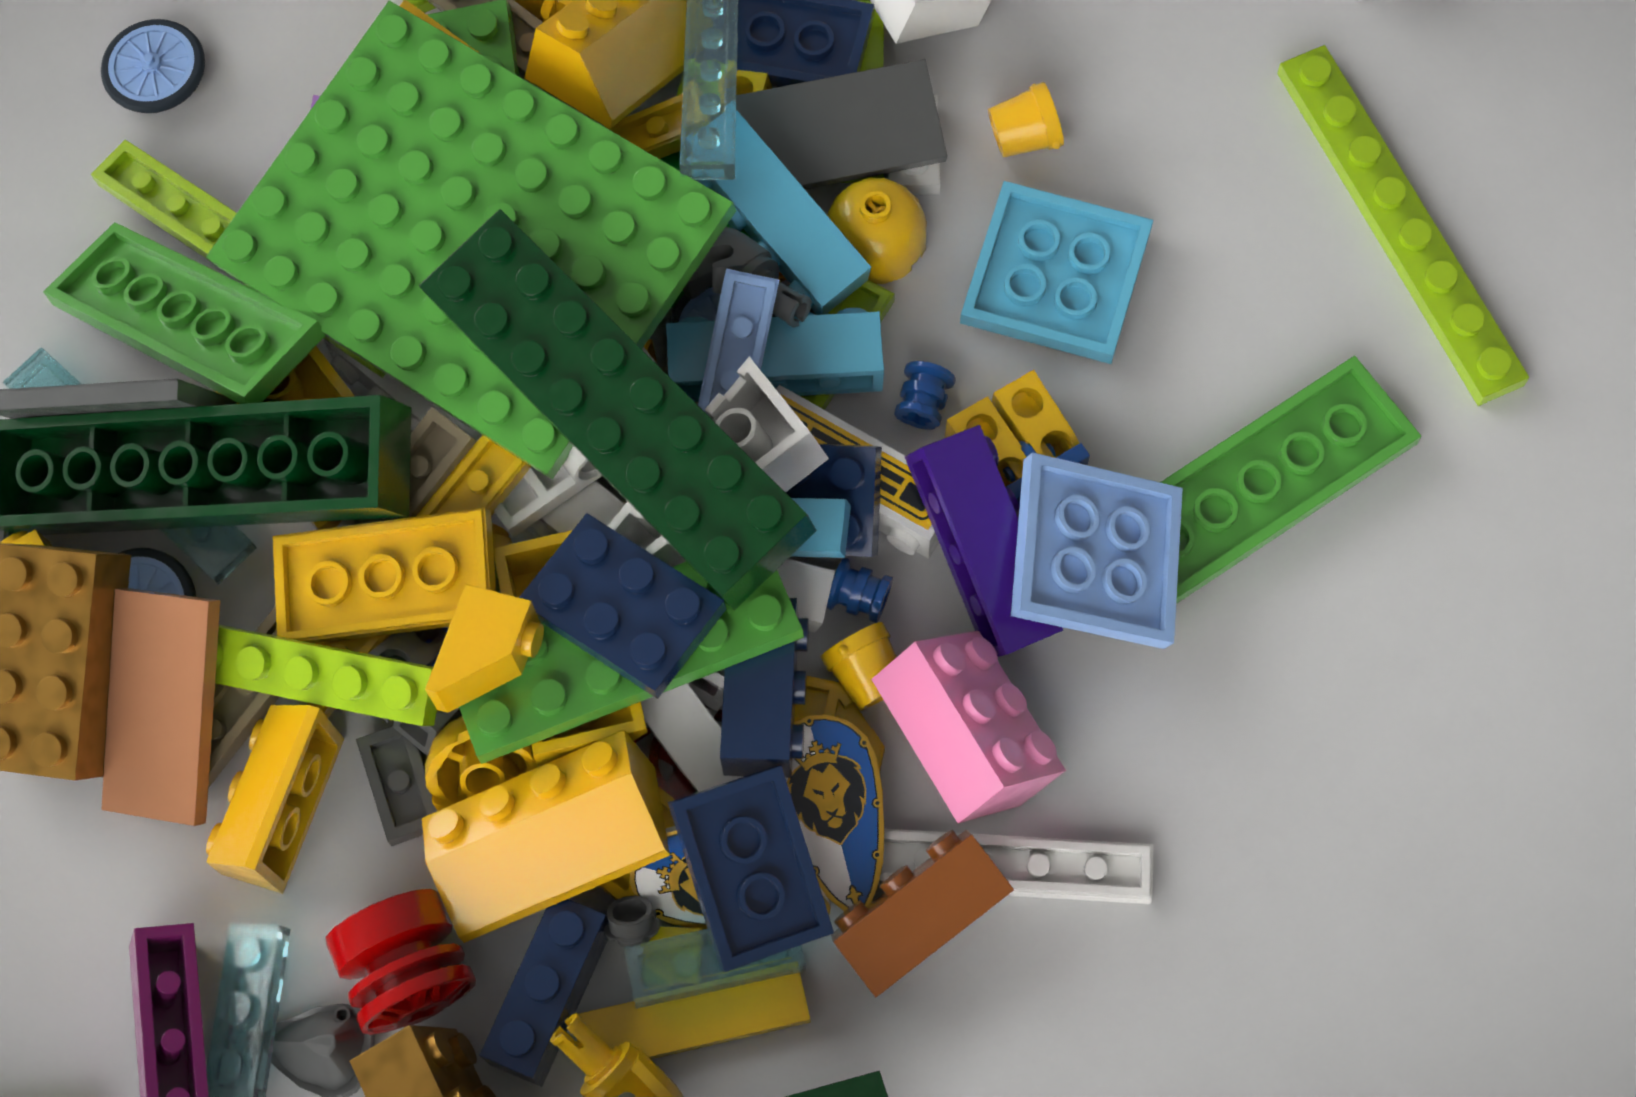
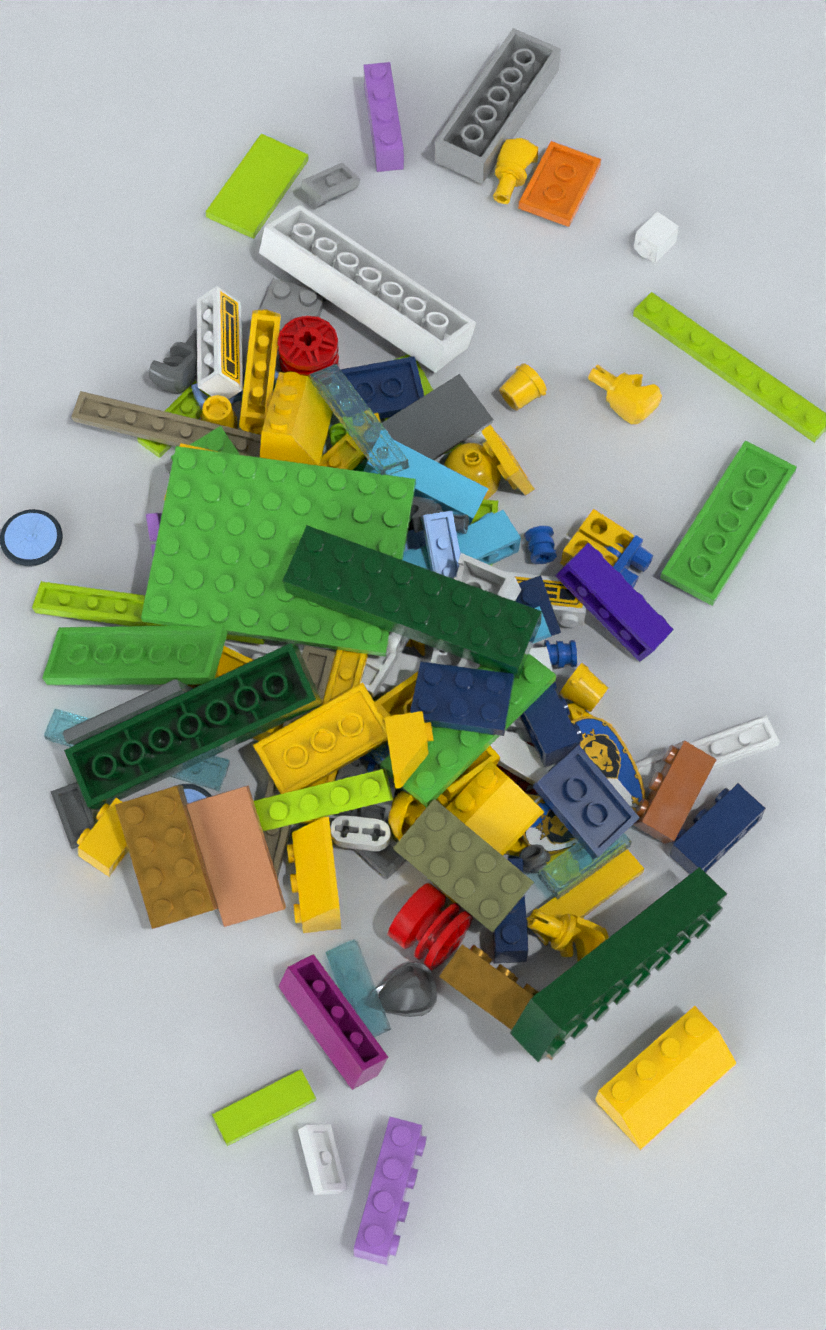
camera: 30 degrees left, 5 degrees down
(384, 742) = (361, 828): none -> white beam
(490, 889) = (463, 865): none -> olive plate
(933, 231) = (508, 464): none -> yellow plate
(963, 1008) = (717, 829): none -> dark blue brick
(968, 725) = (652, 692): bright pink brick -> none
(1056, 272) = (575, 457): medium azure plate -> none
(1097, 551) = (673, 582): light blue plate -> none
(1194, 200) = (627, 395): none -> yellow piece

